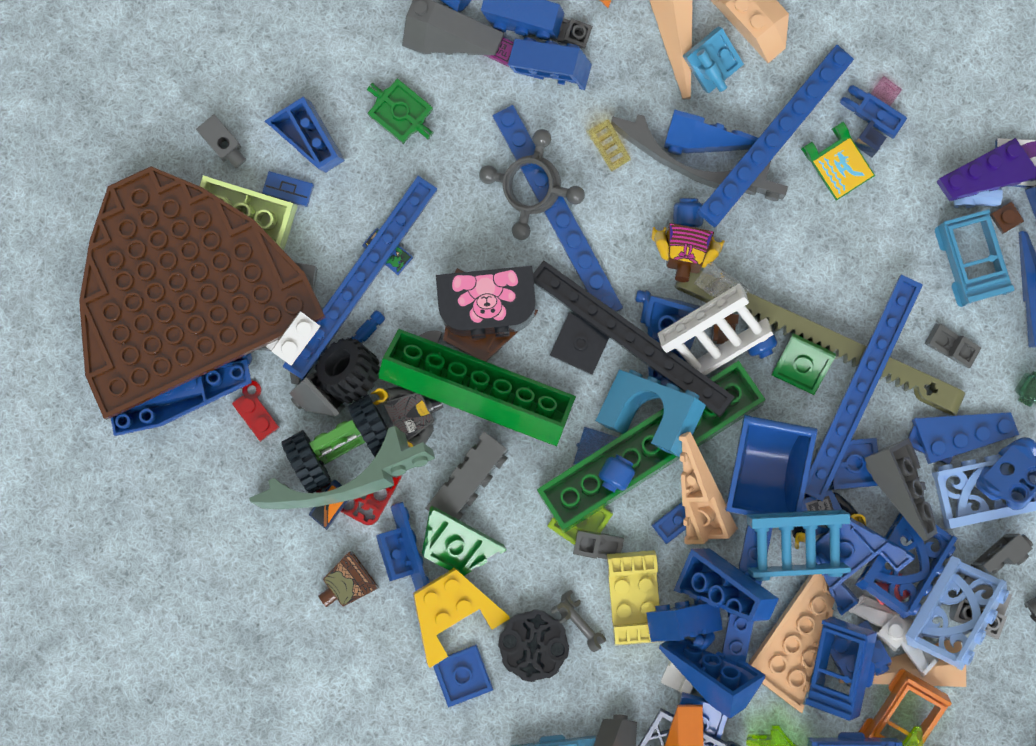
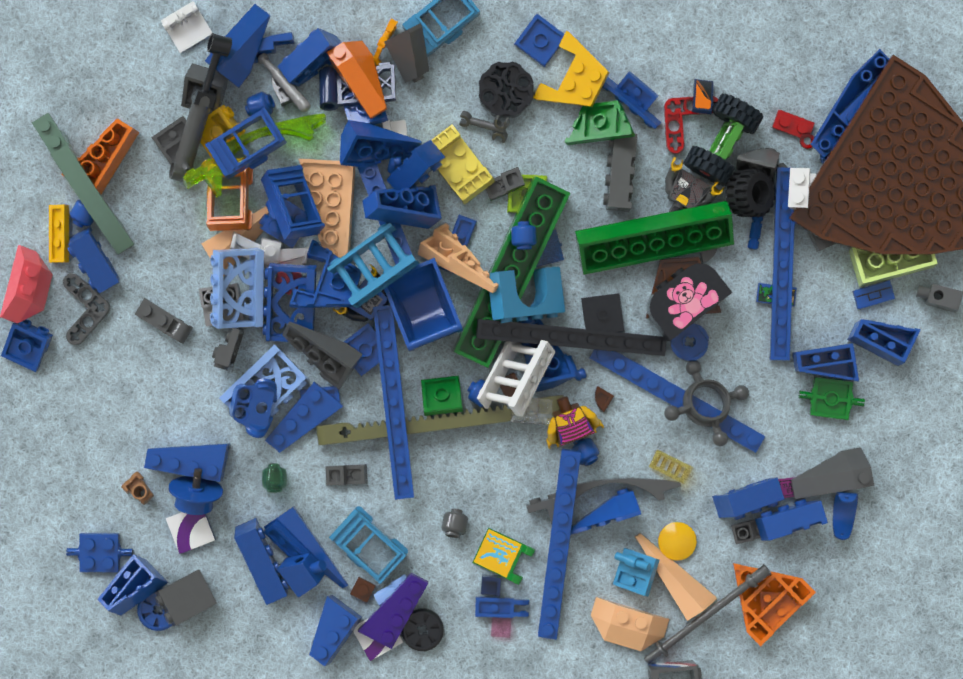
camera: 145 degrees right, 5 degrees up
(347, 582) = (657, 53): torso -> none
(379, 149) = (828, 361): none -> blue wedge
(392, 460) = (681, 148): sand green slope -> none
(505, 245) = (700, 343): none -> blue plate
(634, 257) = (602, 398): none -> reddish brown tile
(649, 66) = (677, 541): none -> yellow dish
(870, 224) = (454, 523): none -> dark grey head
(972, 125) = (427, 640): none -> black wheel

